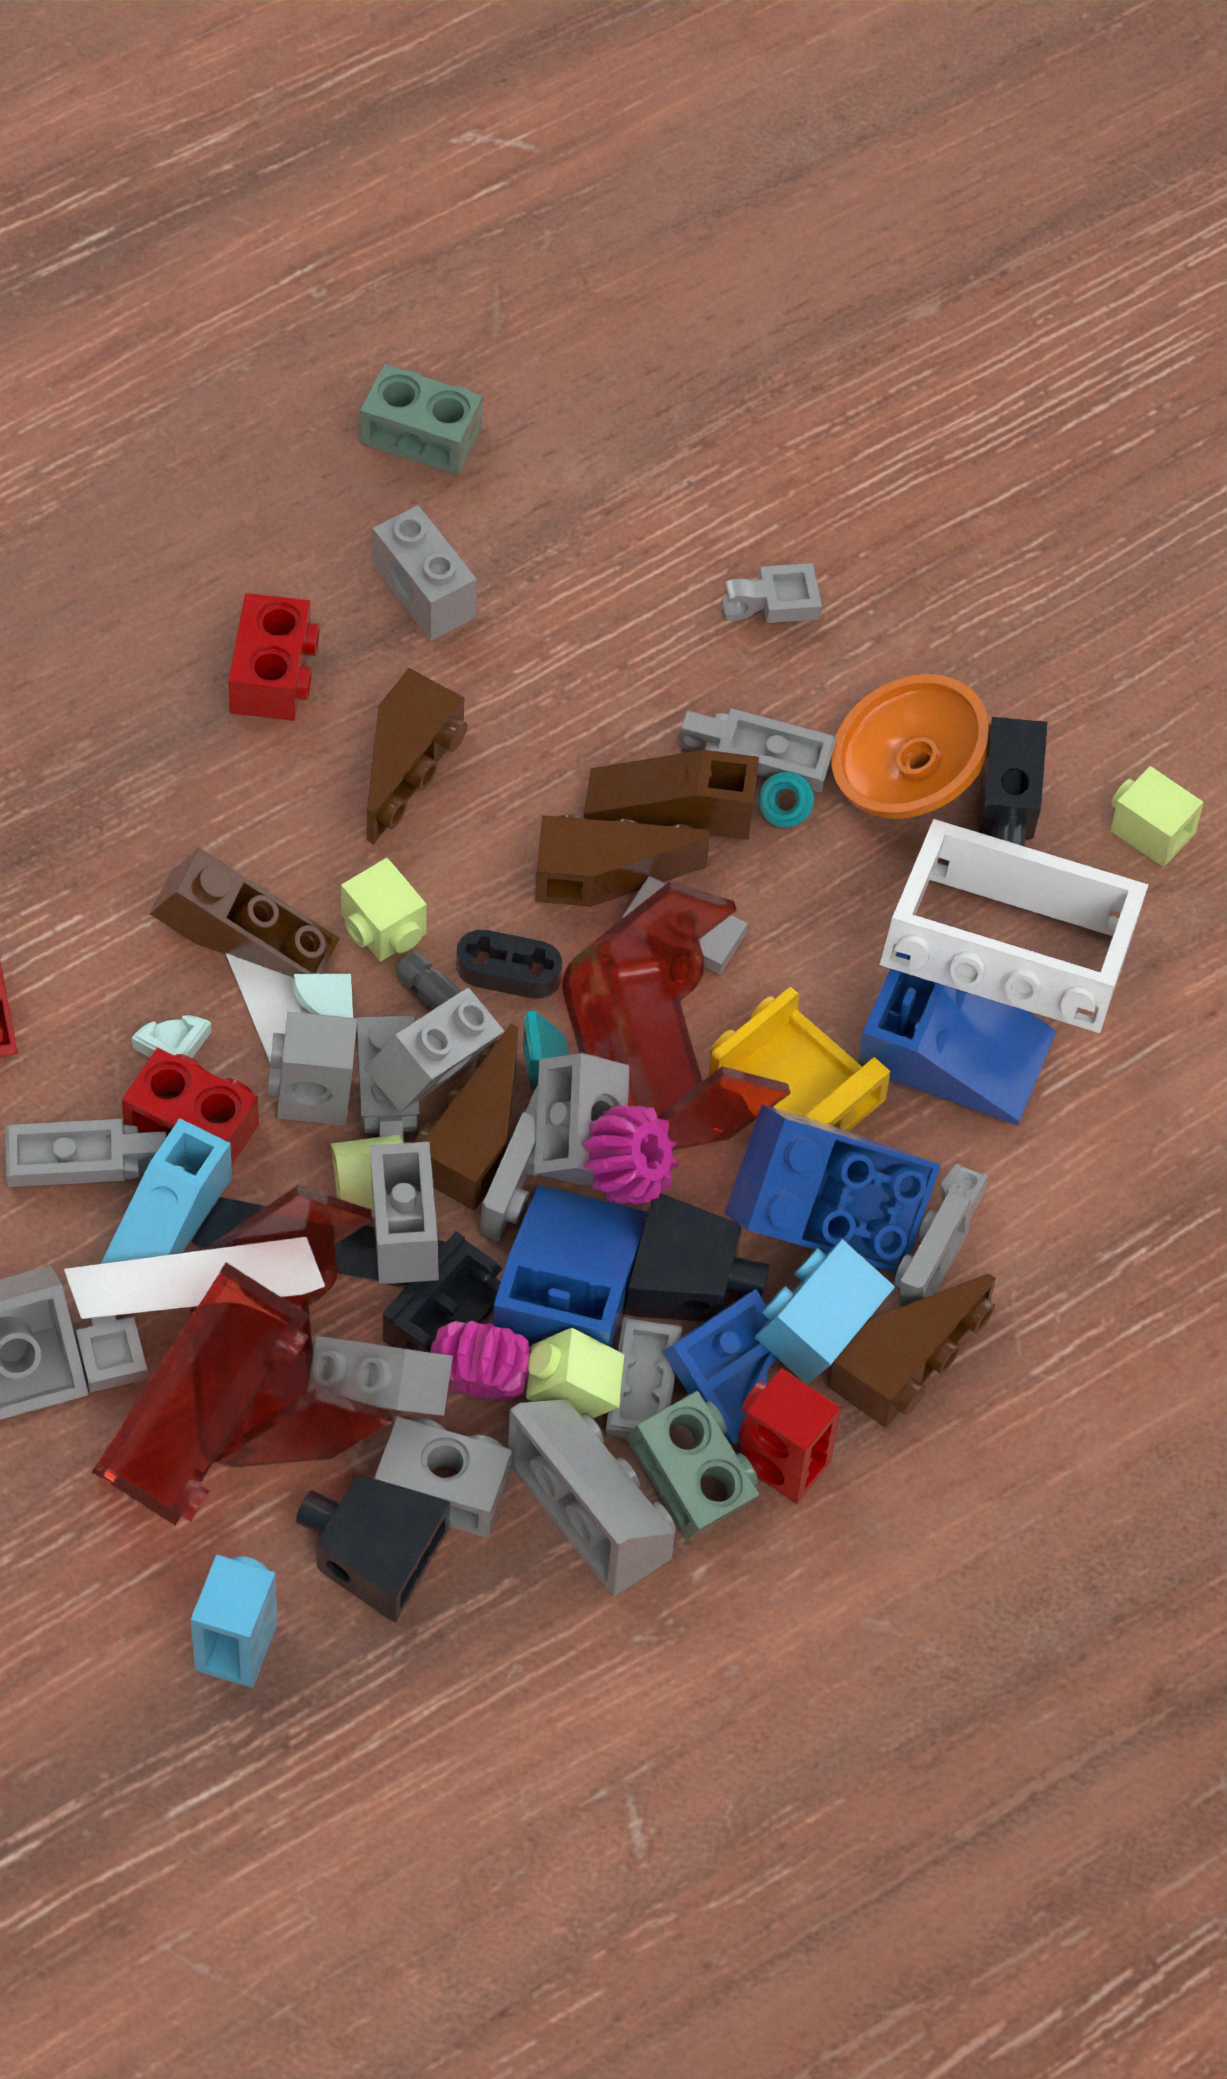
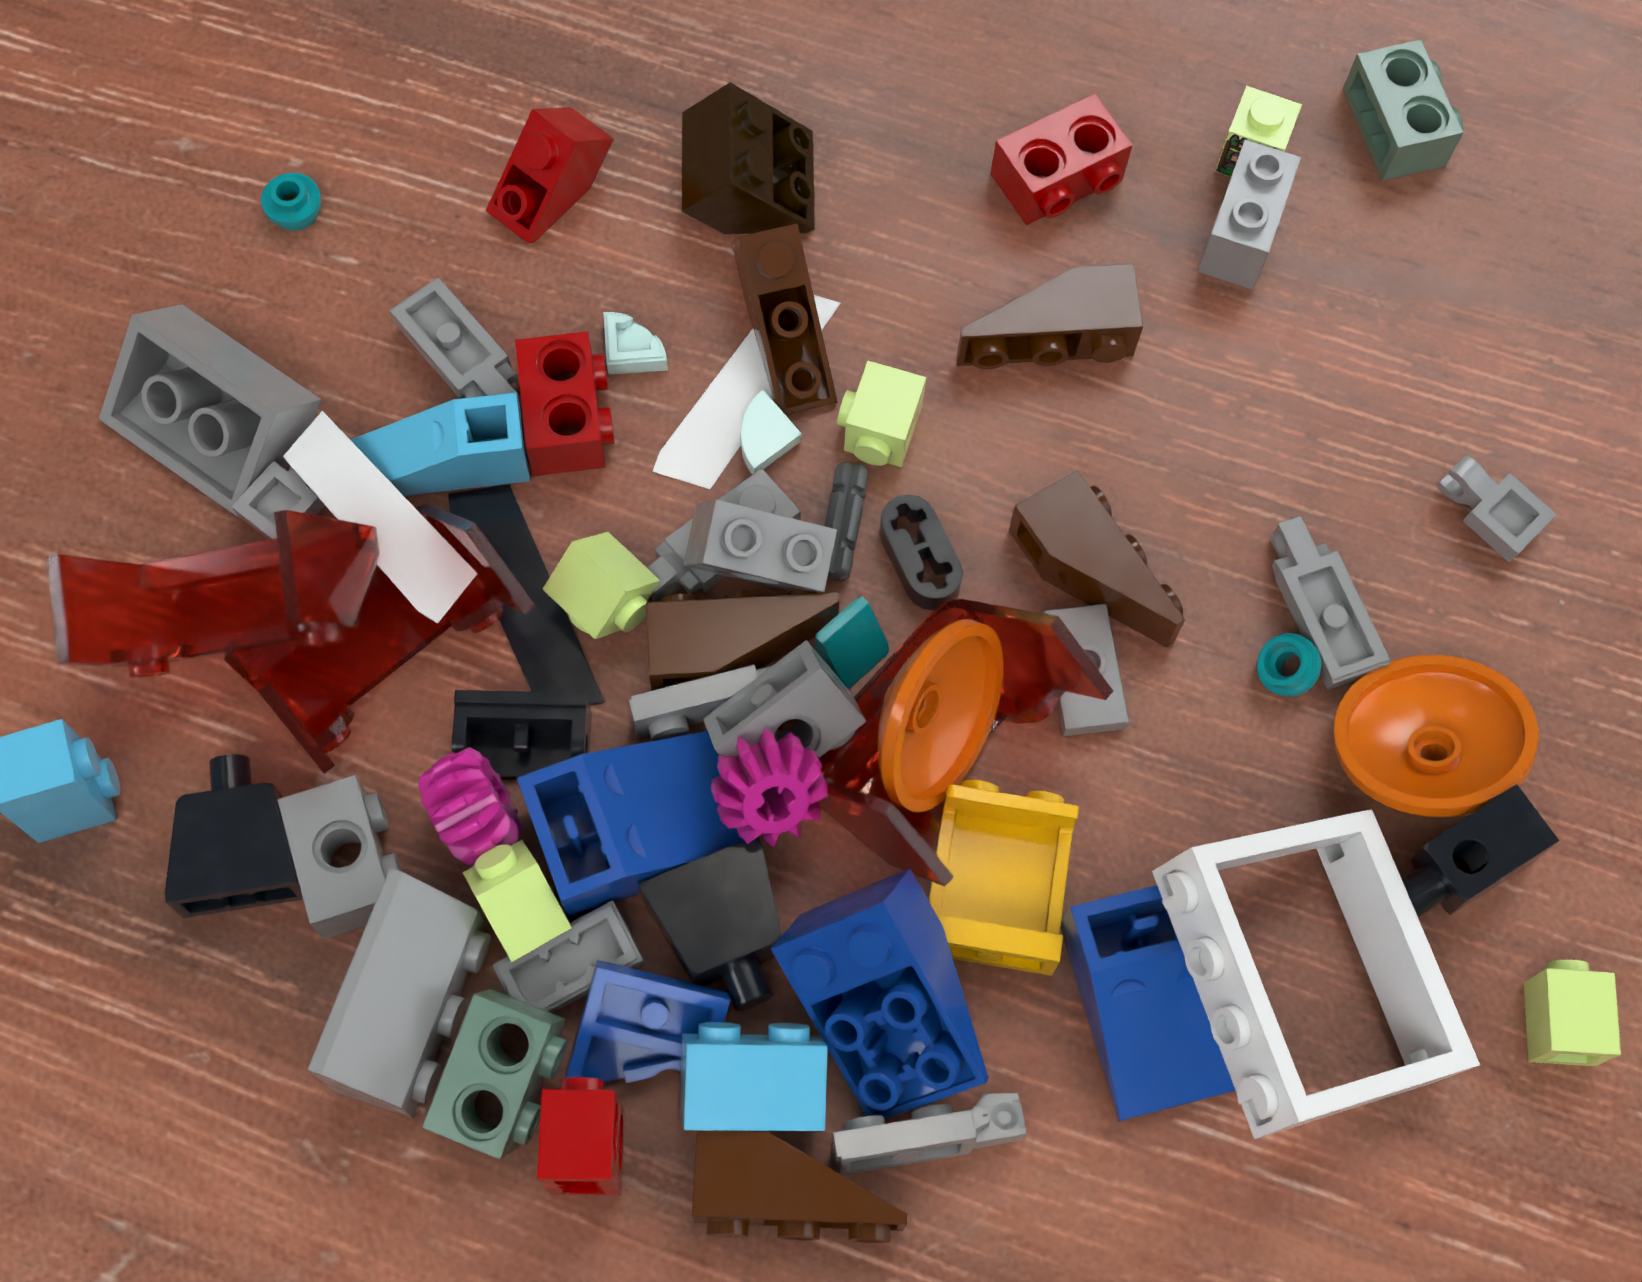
camera: 55 degrees right, 10 degrees up
(91, 860) = (746, 165): none -> dark brown slope
(313, 1068) = (662, 463): light grey brick -> none
(355, 513) = (1259, 119): none -> yellowish green brick
(381, 1375) = (379, 732): light grey brick -> none
(404, 1212) = (545, 634): light grey brick -> none
(654, 1017) = (939, 713): none -> orange dish
(685, 788) = (1210, 570): reddish brown slope -> none

